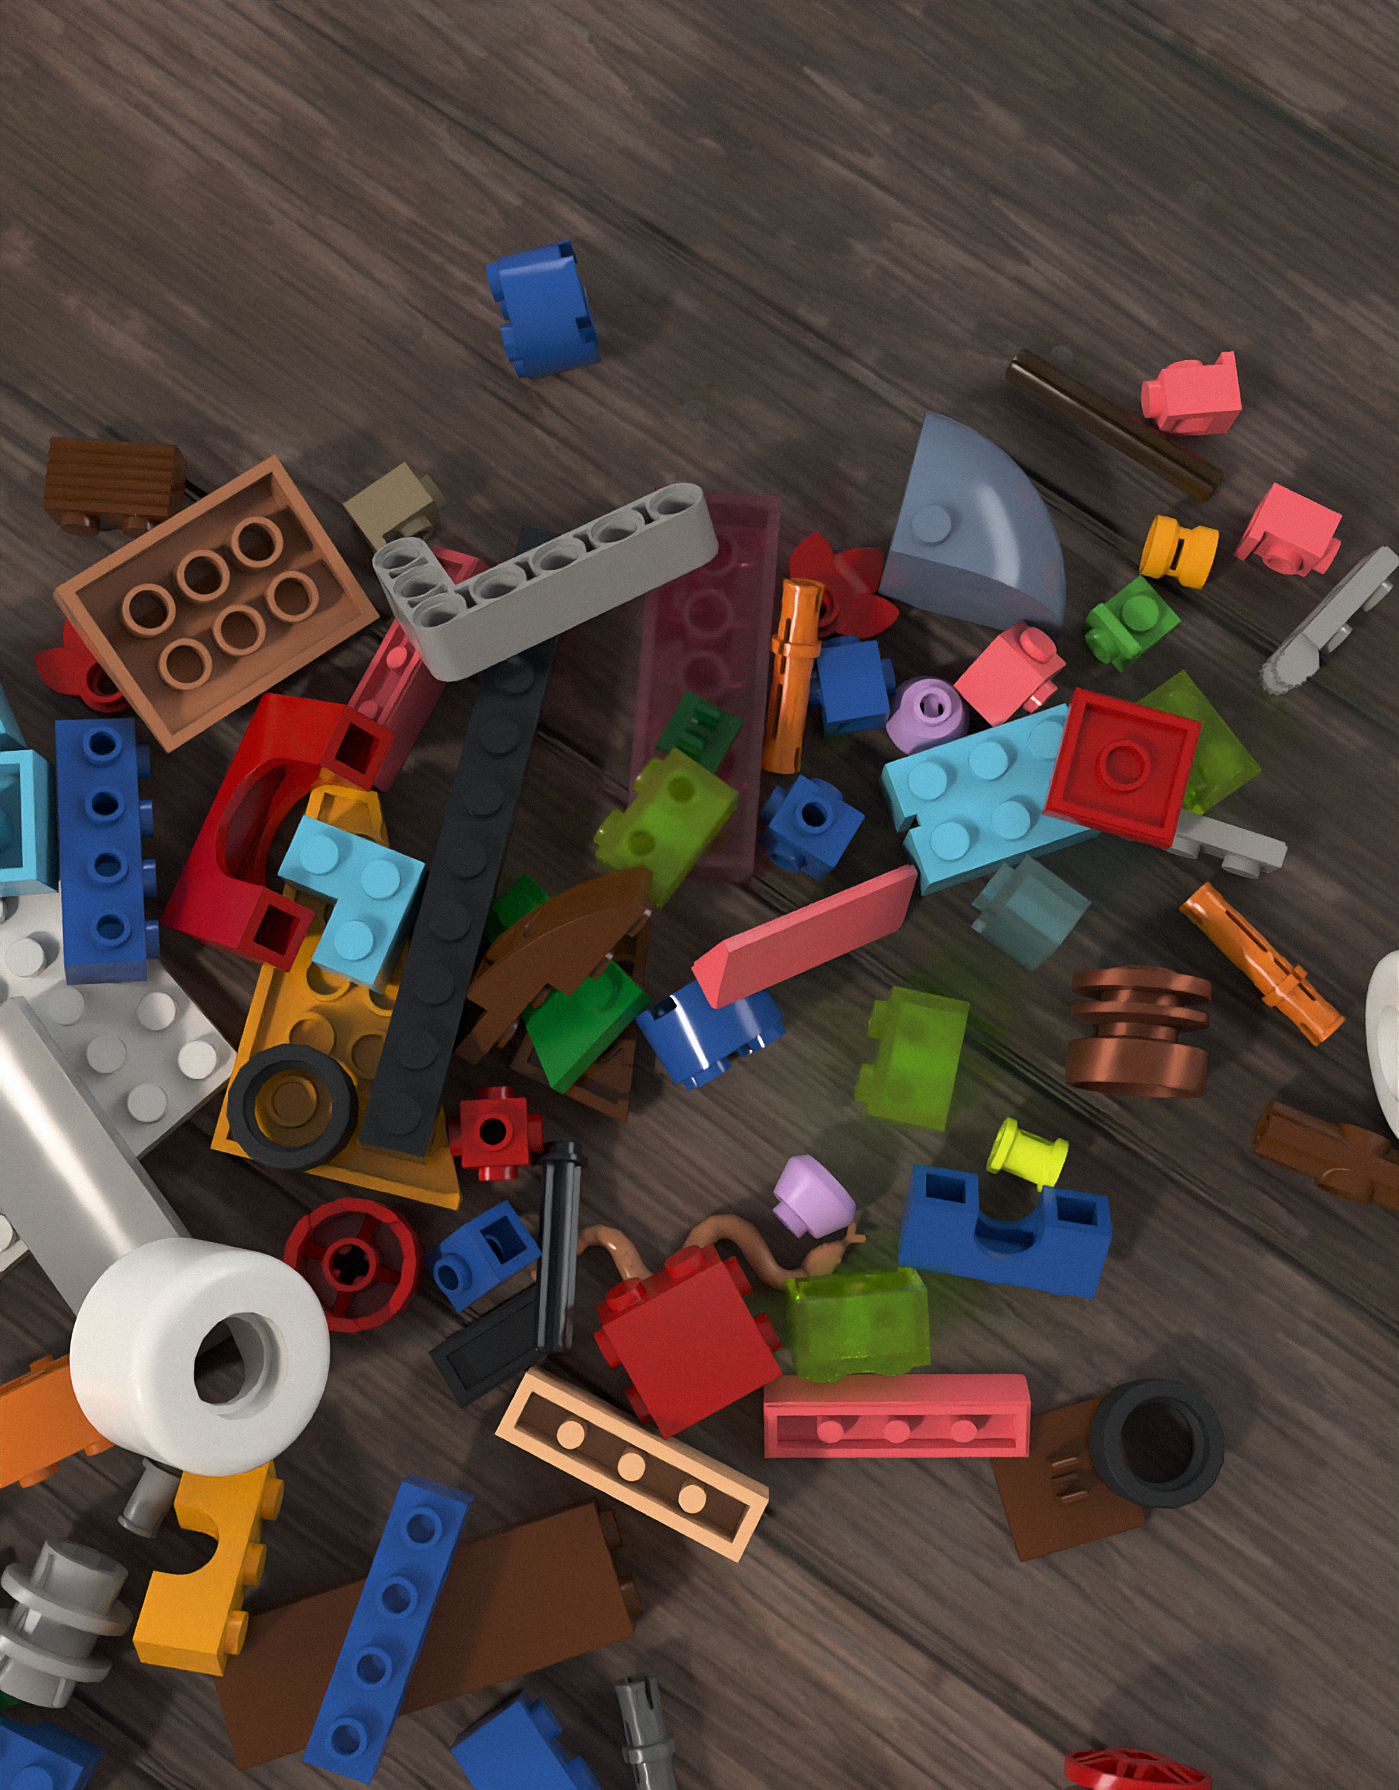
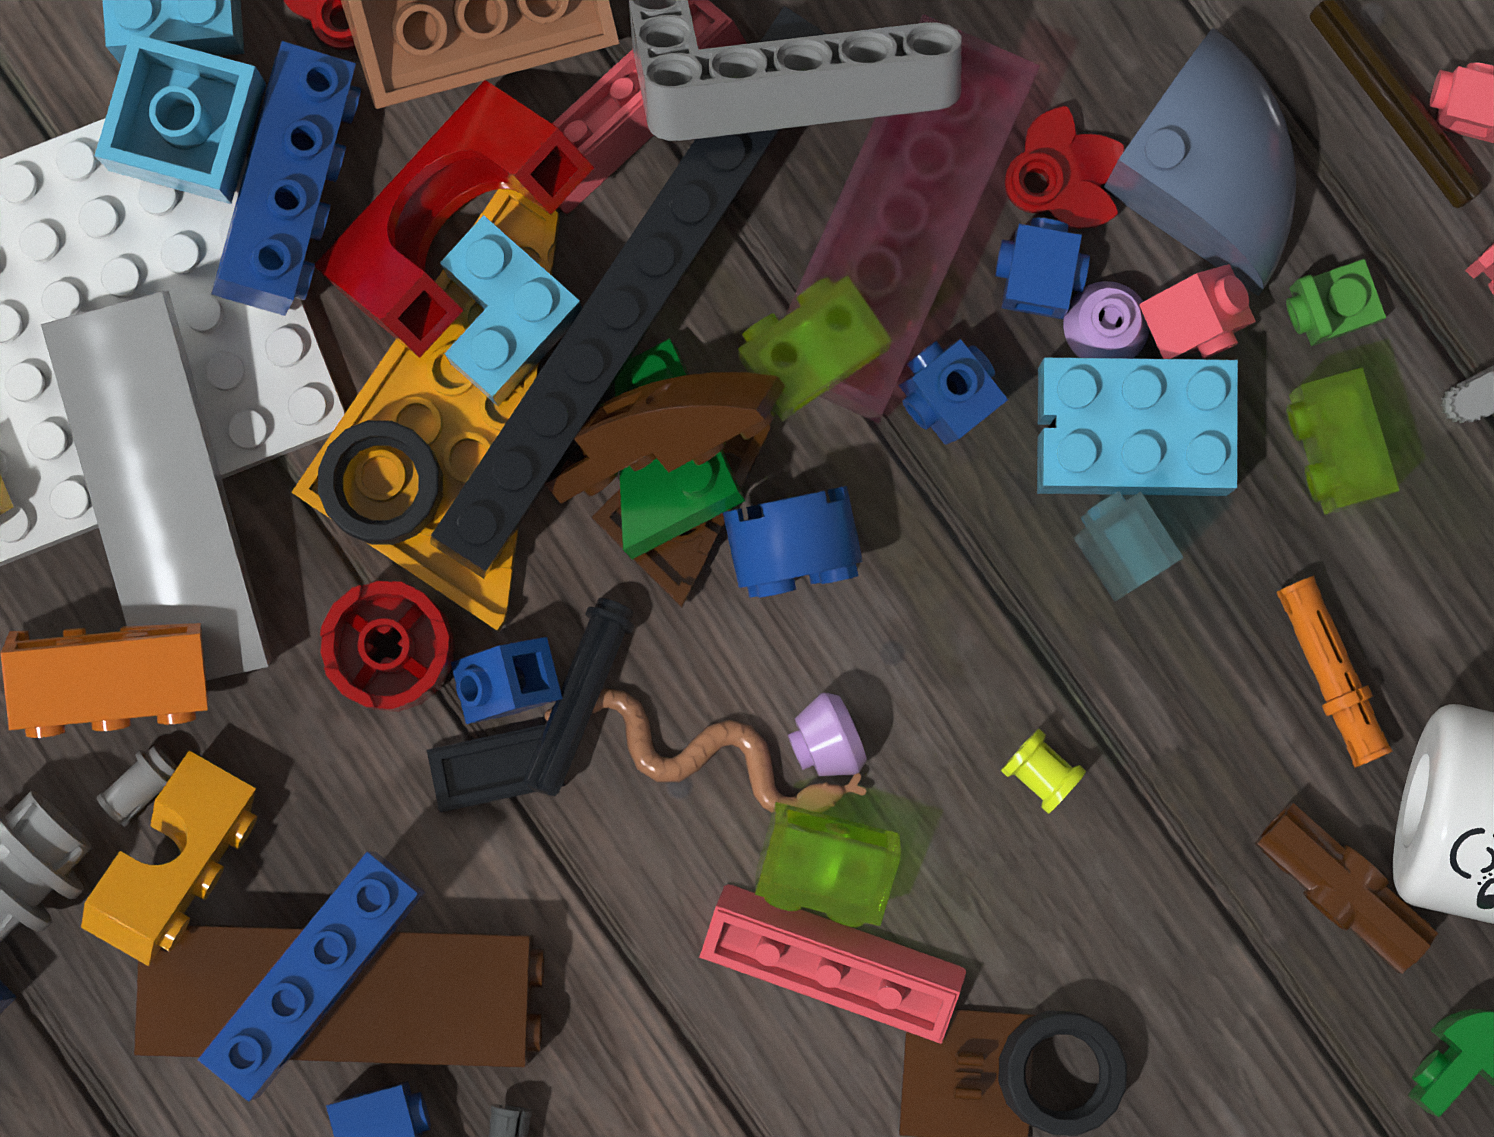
camera: 25 degrees right, 5 degrees up
(140, 1346) = (184, 640): white piece -> none
(516, 1150) = (581, 584): red brick -> none
(634, 1462) = (578, 914): light nougat brick -> none
(687, 1339) = (667, 822): red brick -> none
(700, 732) = (878, 268): dark green tile -> none
(794, 659) = (998, 220): orange pin -> none
(805, 938) = (909, 495): coral slope -> none
(912, 1059) = (969, 644): clear neon green brick -> none
(1050, 1250) = (1028, 863): blue arch -> none
(1122, 768) = (1263, 441): red tile -> none
(1138, 1033) = (1187, 694): copper wheel -> none
(1190, 556) = (1420, 258): light orange wheel -> none
(1242, 850) = (1312, 525): light grey hinge -> none

